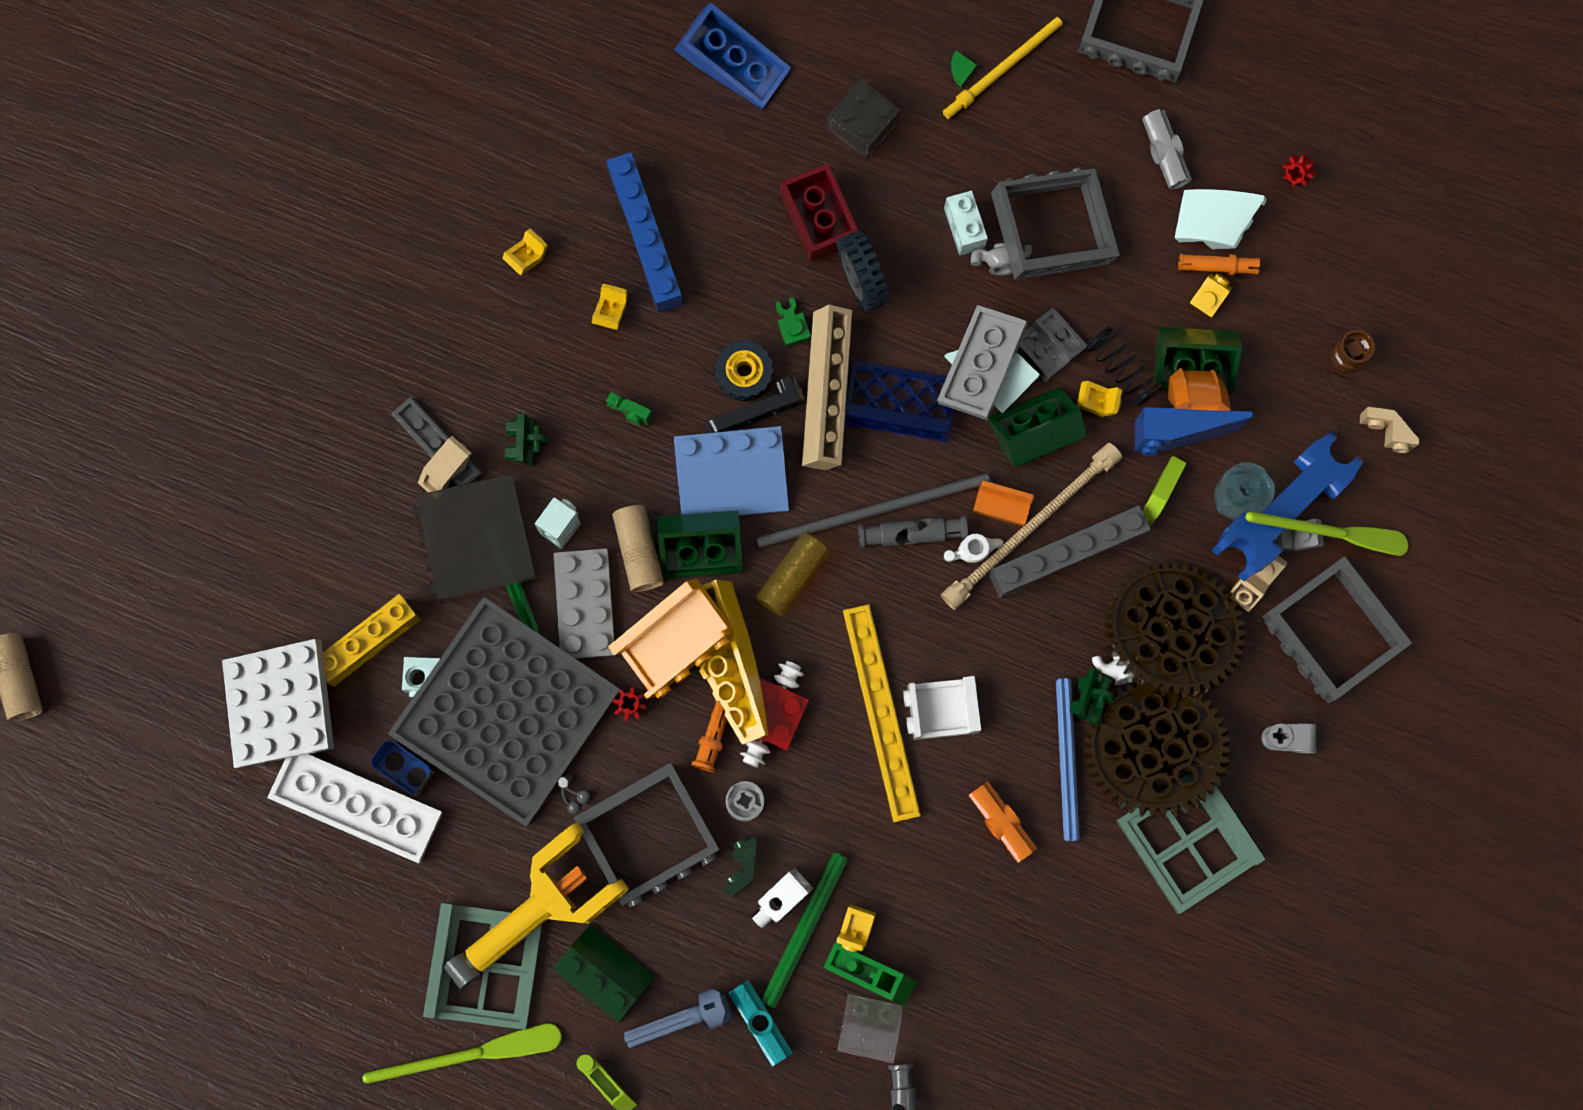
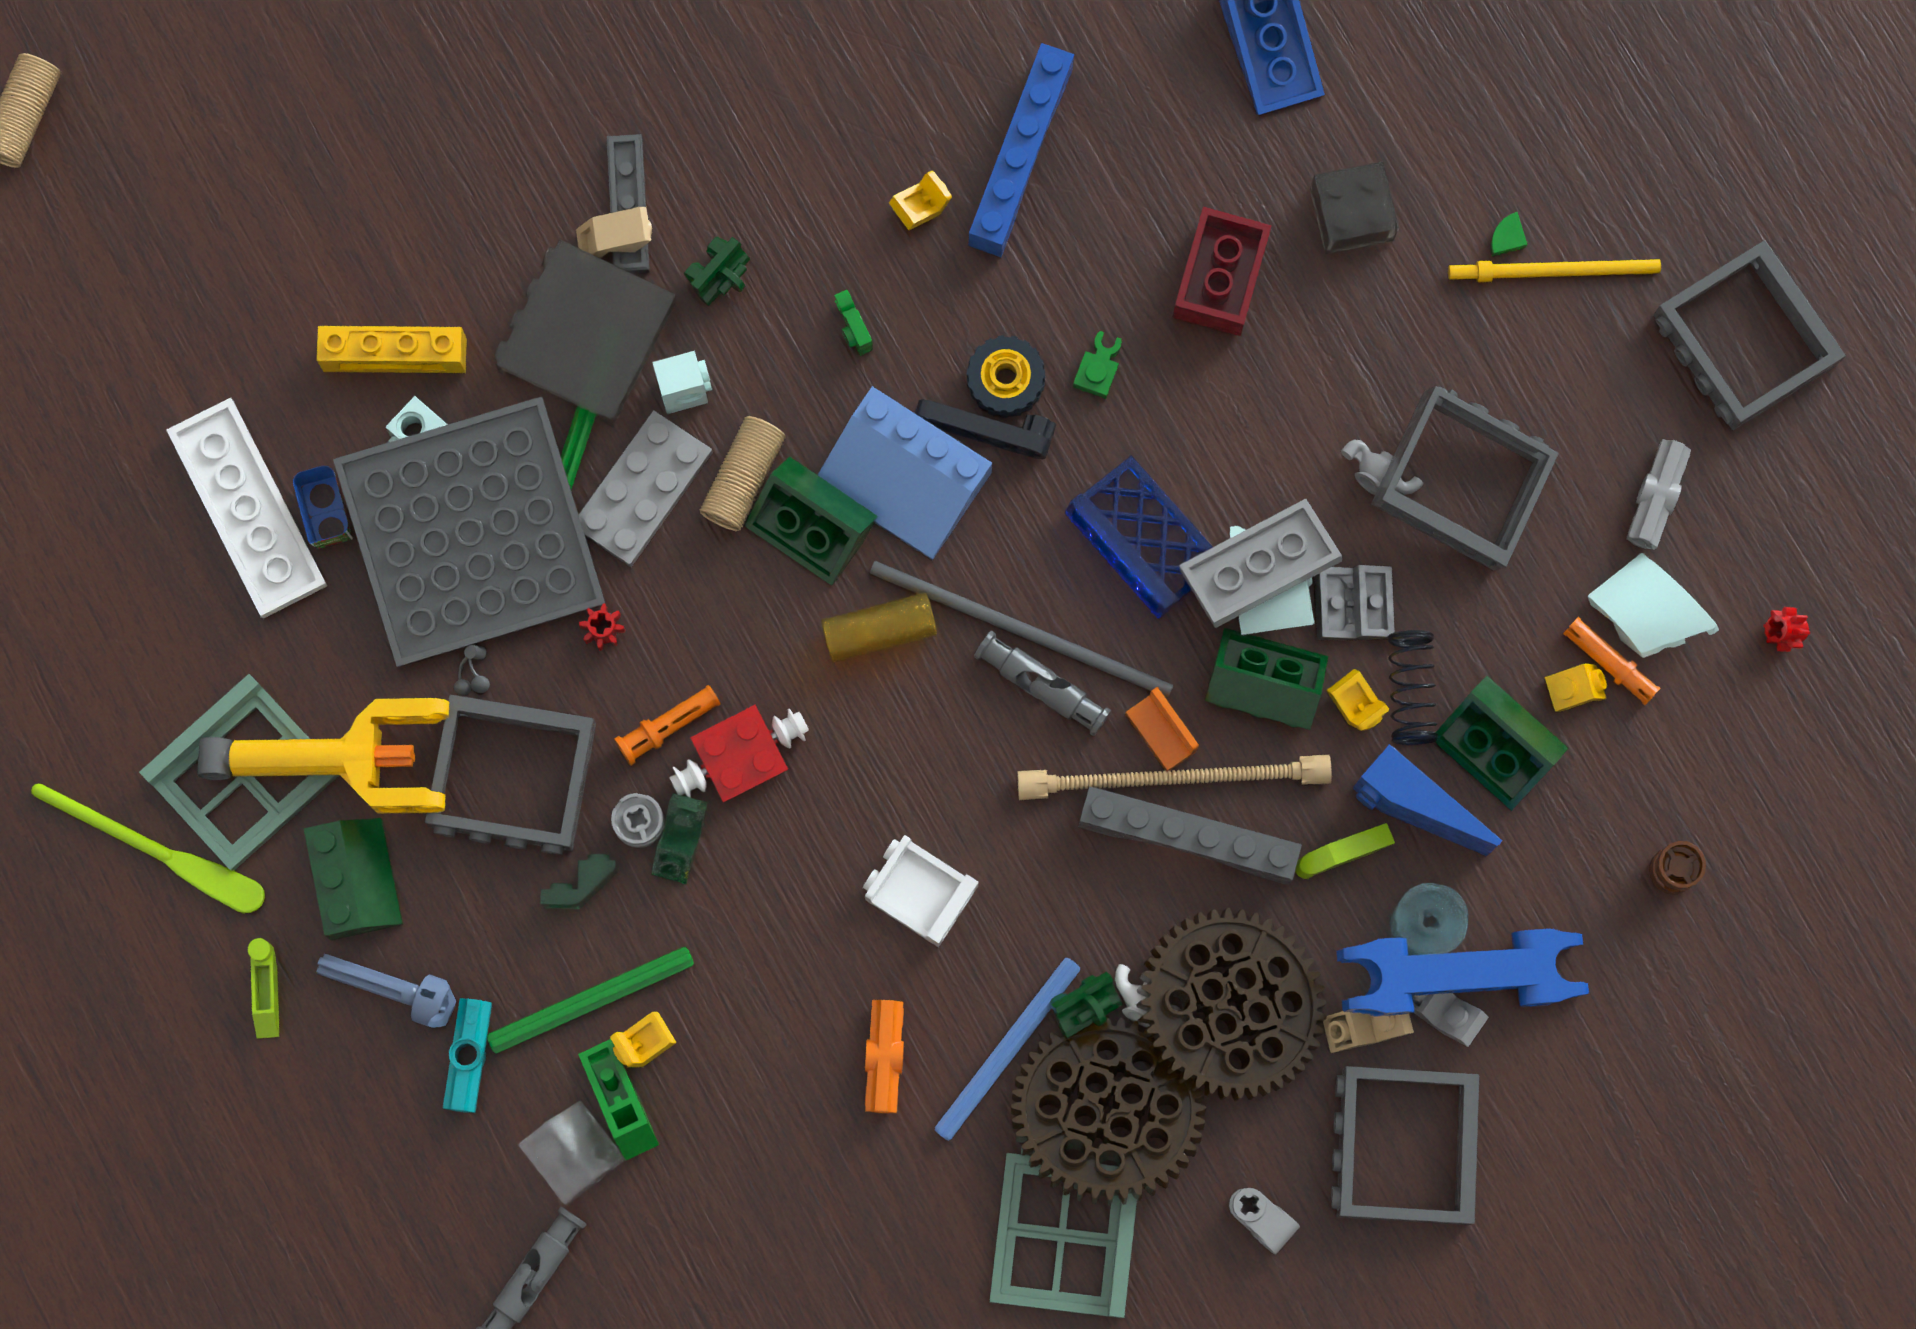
camera: 40 degrees right, 0 degrees up
(277, 704) = (252, 343): plate -> none
(526, 253) = (880, 76): yellow bracket -> none
(674, 638) = (700, 593): panel -> none
(734, 670) = (741, 648): yellow wedge -> none
(778, 792) = (680, 838): none -> clear green slope
(789, 890) = (605, 944): white torso -> none
(827, 387) = (1076, 461): tan brick -> none
(862, 271) = (1212, 367): black wheel -> none
(881, 713) = (853, 845): yellow tile -> none
(965, 223) = (1371, 403): light aqua brick -> none
(974, 549) = (1091, 752): white piece -> none
(1198, 391) = (1467, 775): orange slope -> none
(1372, 538) = (1530, 1084): lime piece -> none
(1397, 434) = (1652, 997): tan slope -> none

